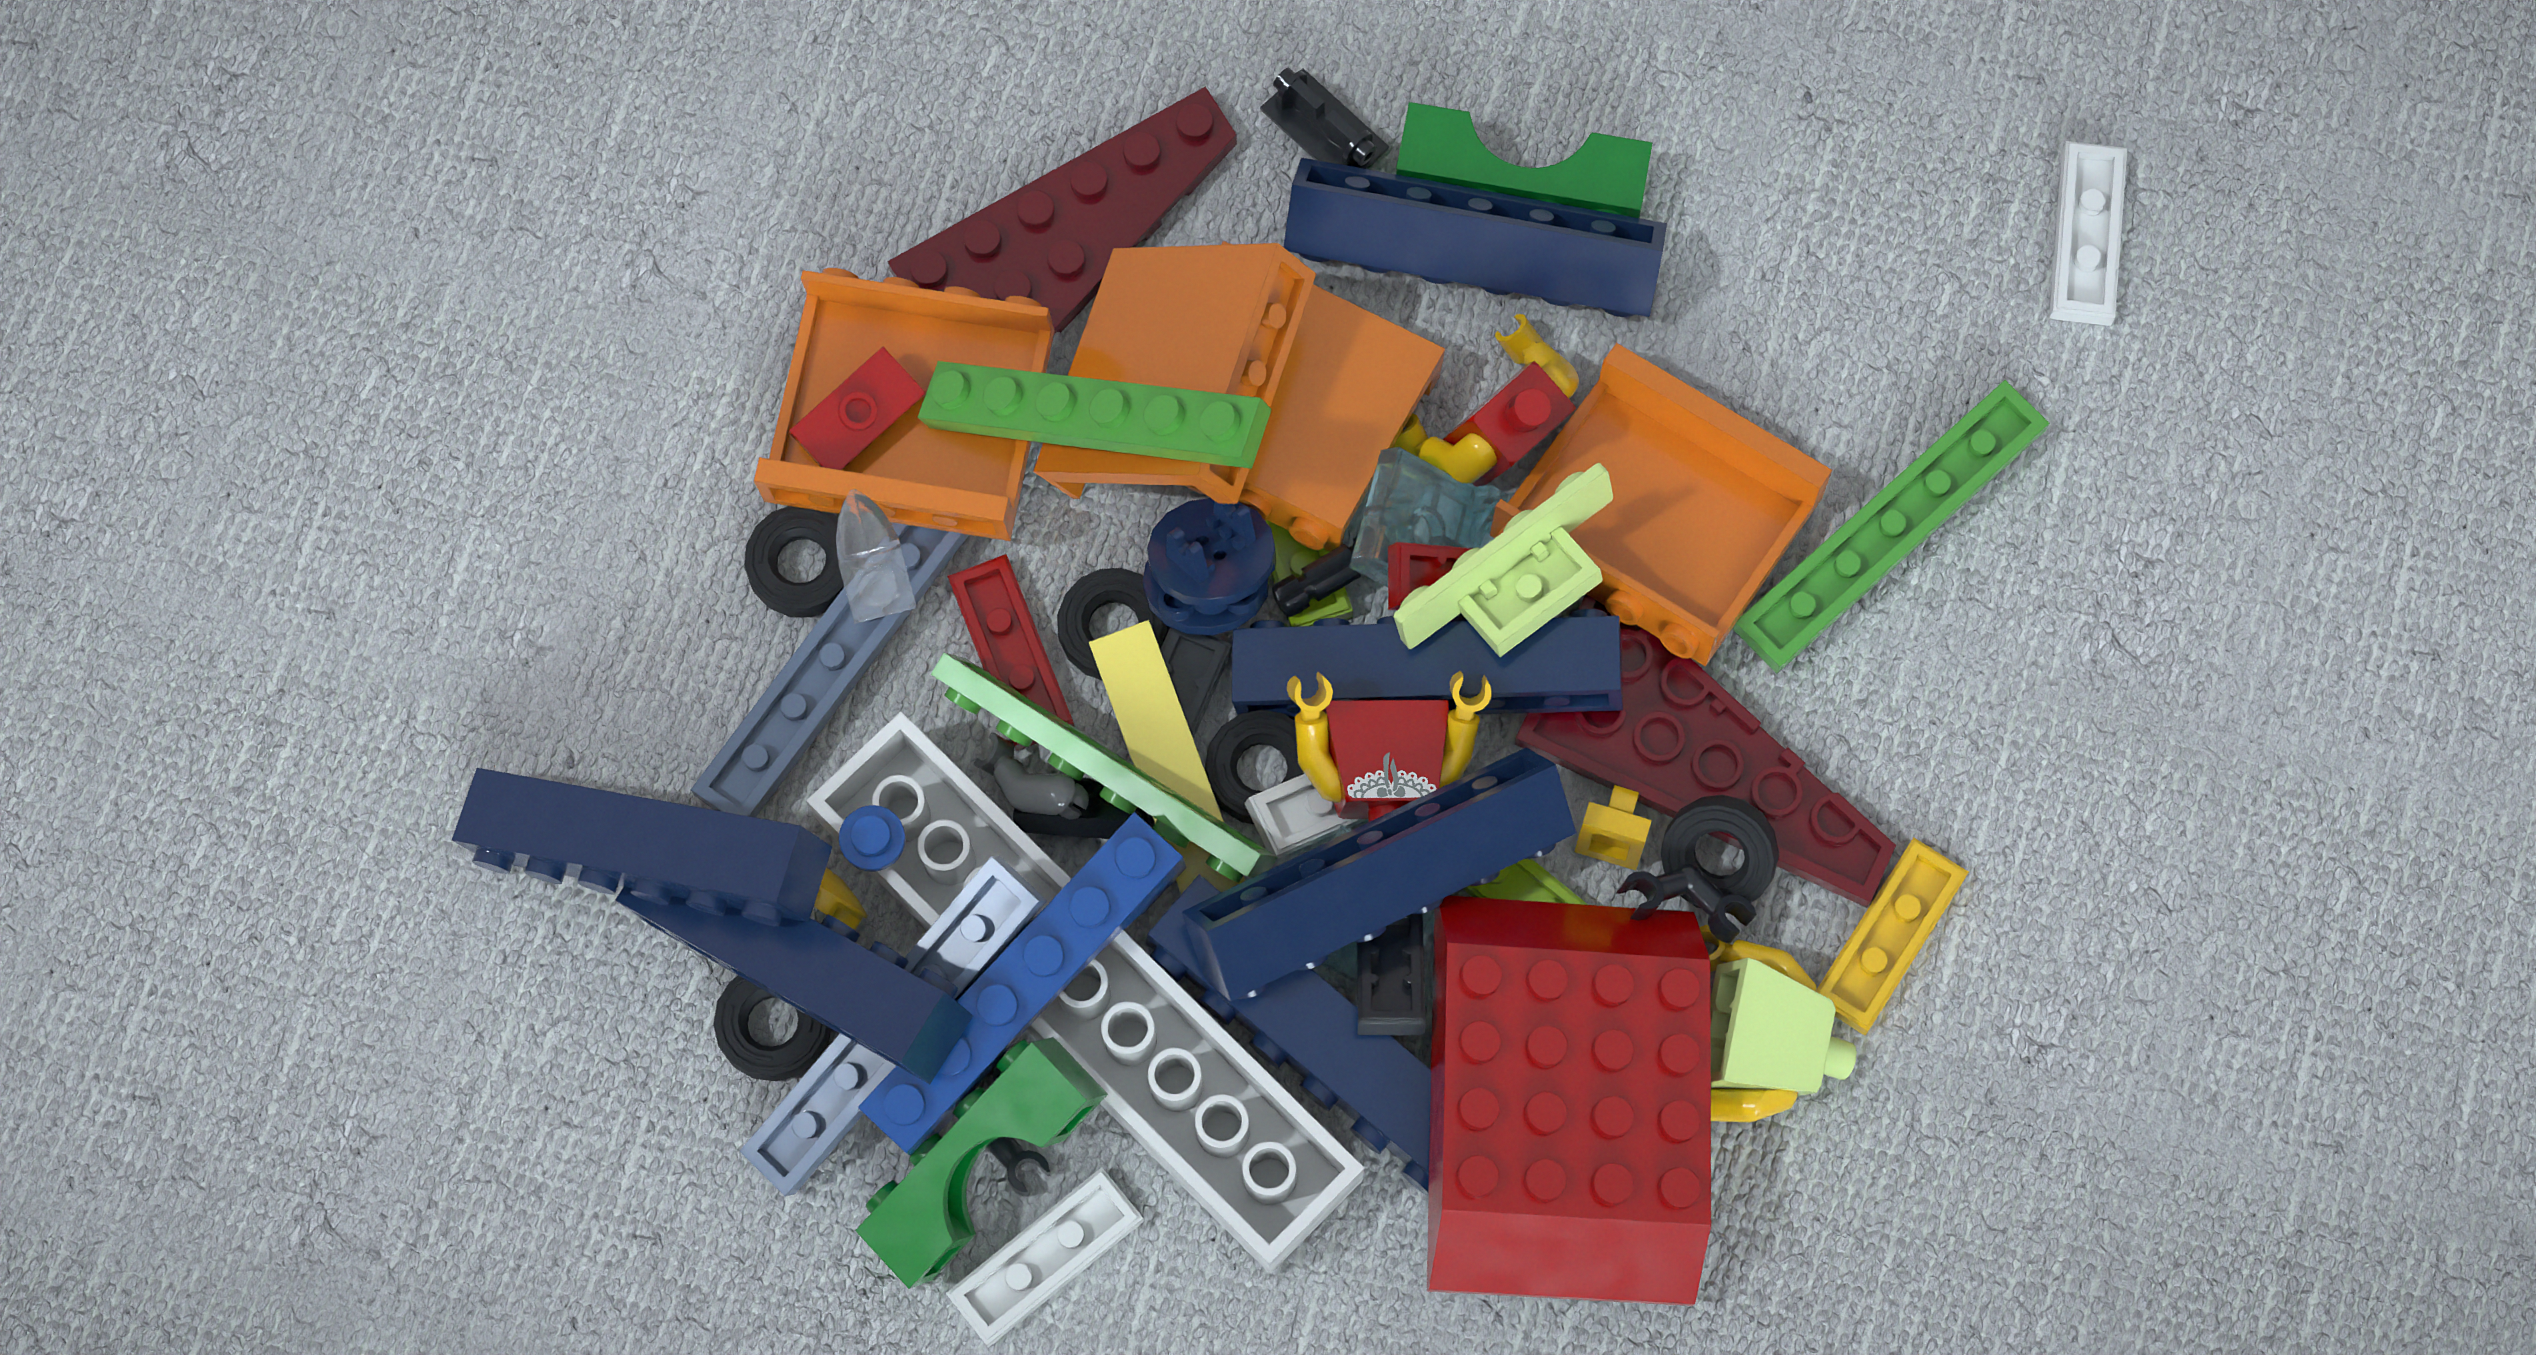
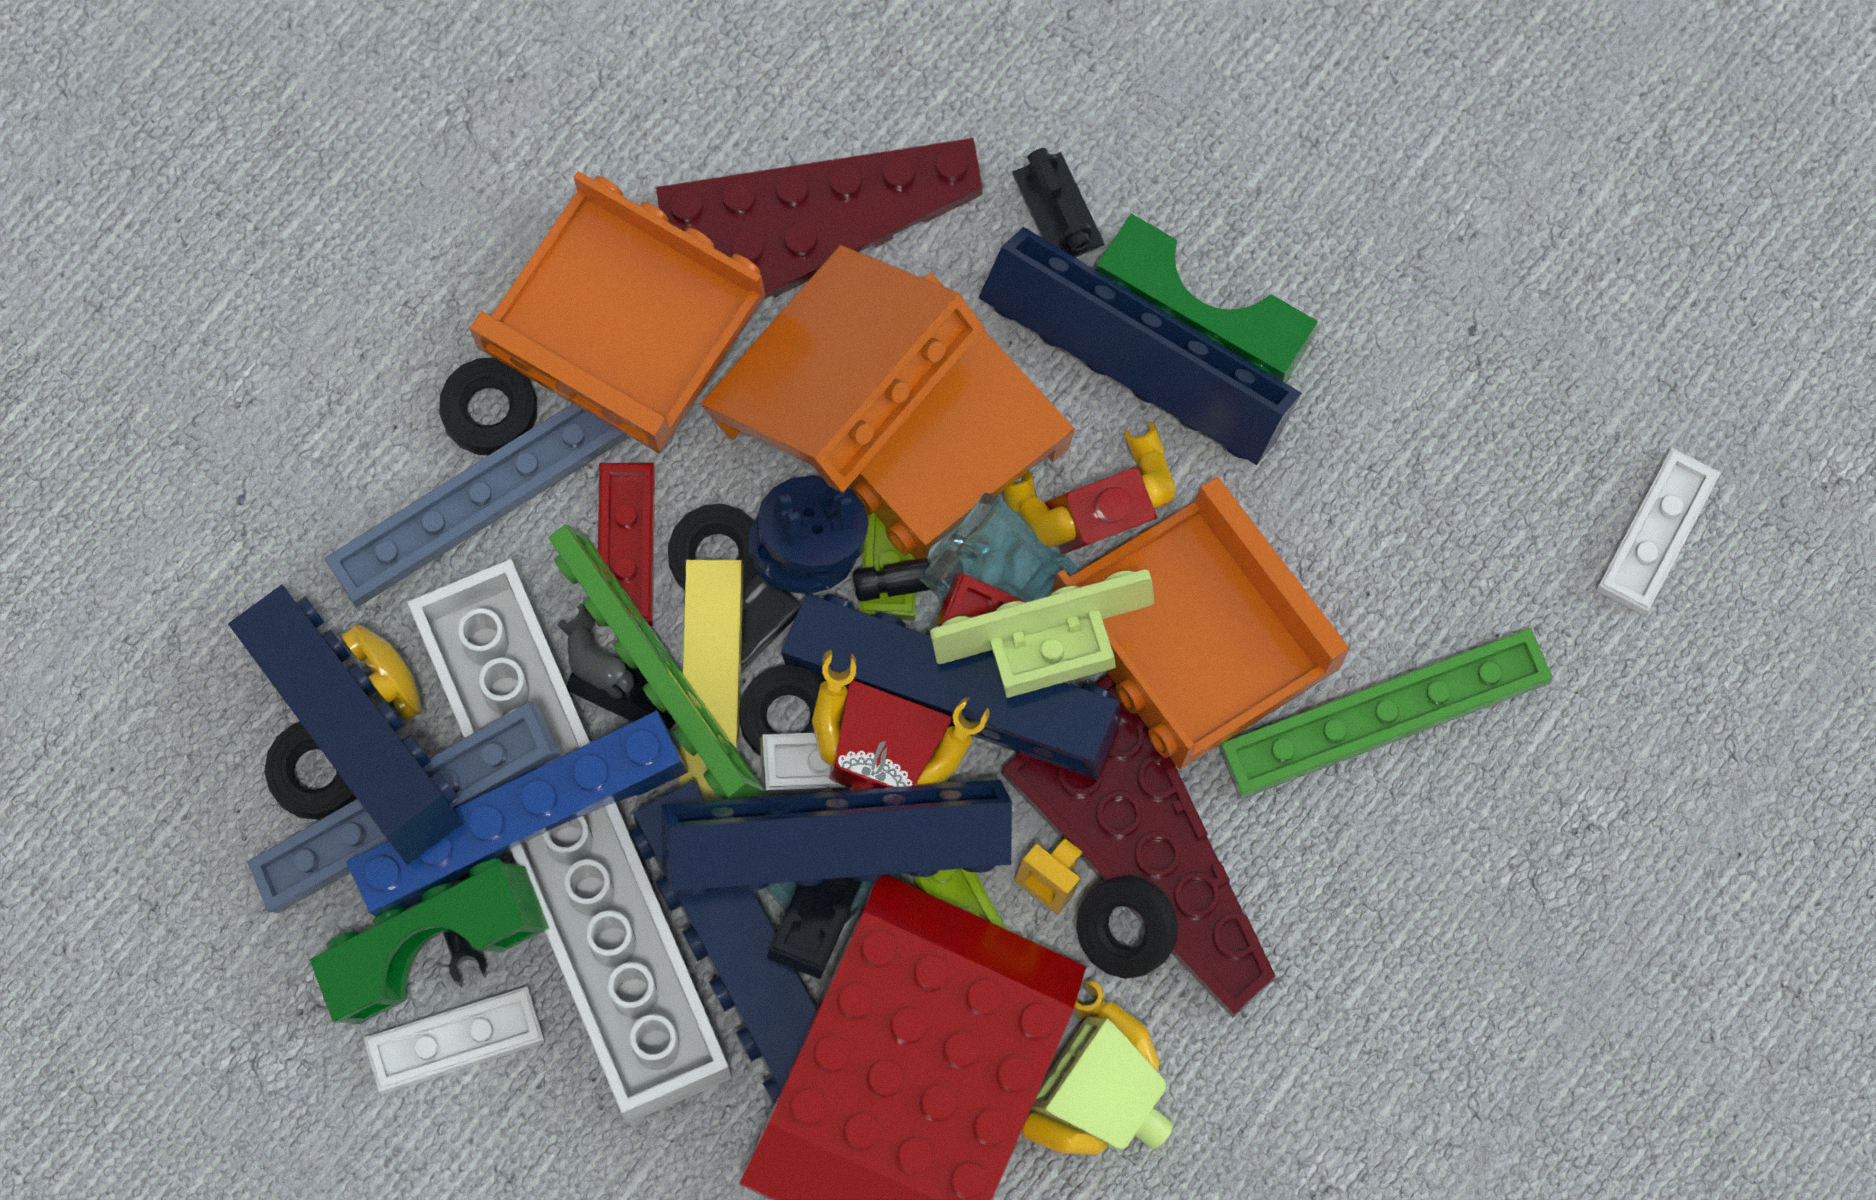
camera: 20 degrees right, 0 degrees up
(642, 845) = (263, 588): dark blue brick -> none
(857, 411) = (576, 302): red plate -> none
(871, 560) = (538, 428): clear plate -> none
(872, 838) = (445, 652): blue plate -> none
(1096, 414) = (759, 377): bright green plate -> none
(1690, 881) = (1093, 942): black arm -> none
(1890, 934) = (1242, 1048): yellow tile -> none

